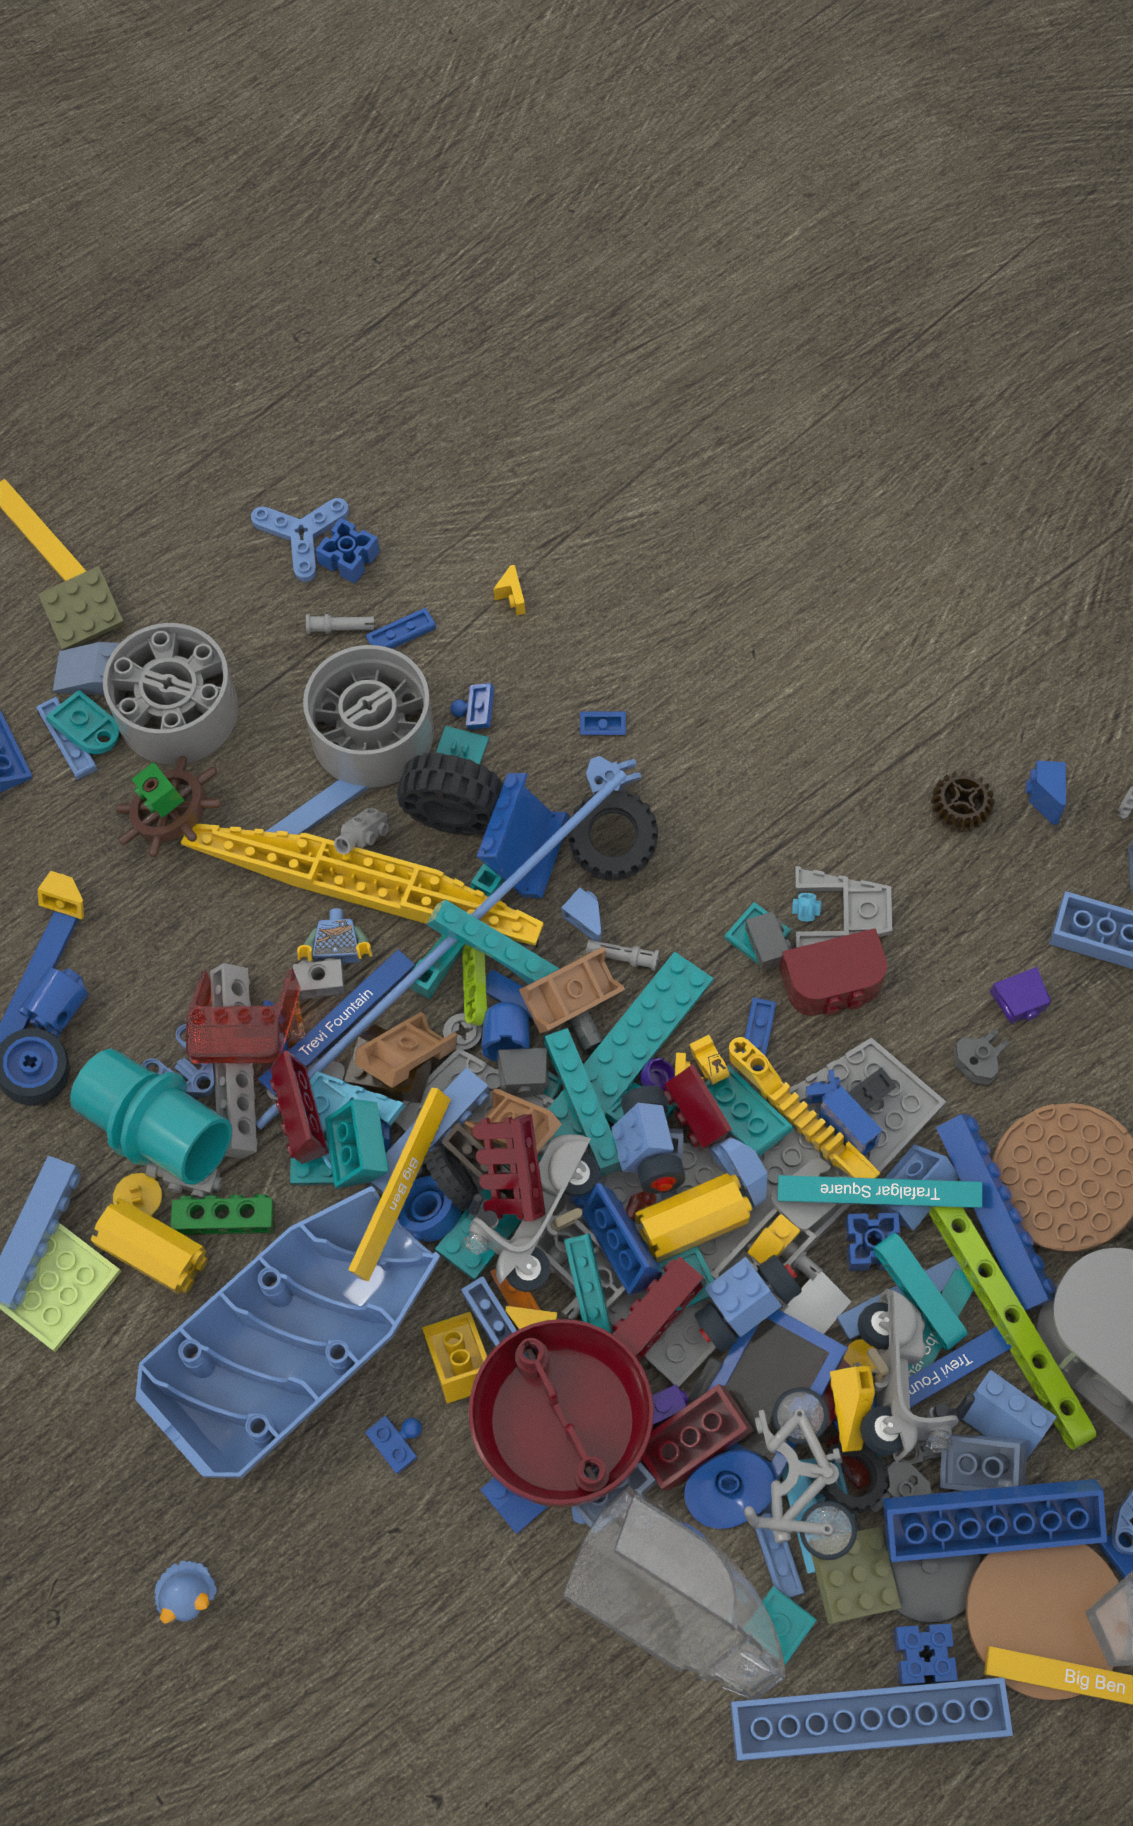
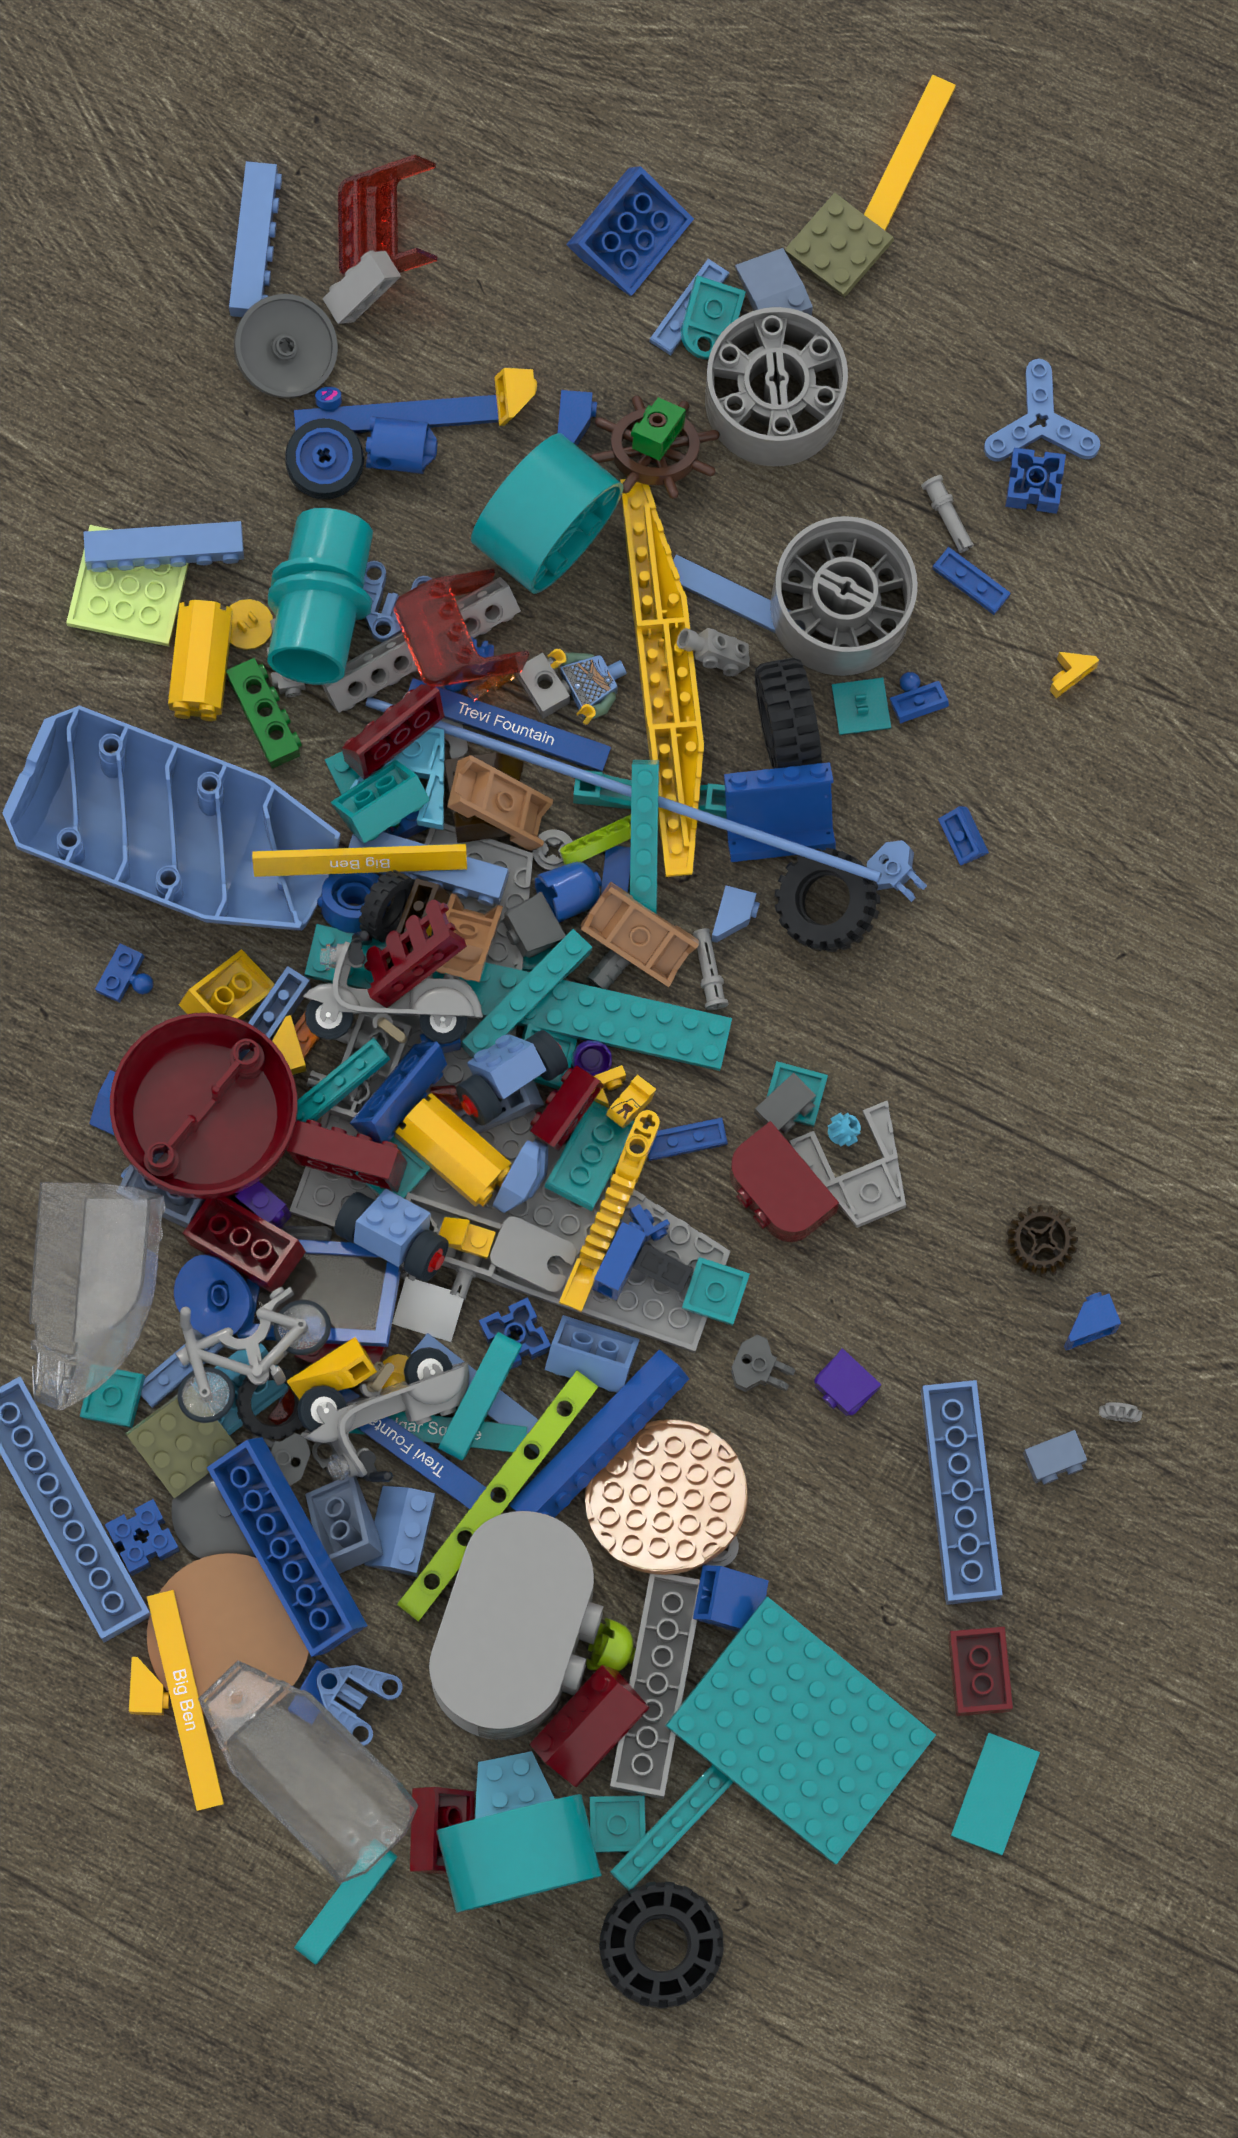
camera: 60 degrees right, 10 degrees up
(106, 858) = (575, 414): none -> blue slope
(181, 900) = (546, 513): none -> teal wheel
(879, 1191) = (560, 1317): teal tile -> none
(904, 1060) = (715, 1291): none -> teal plate
(1073, 1716) = (146, 1691): none -> yellow slope

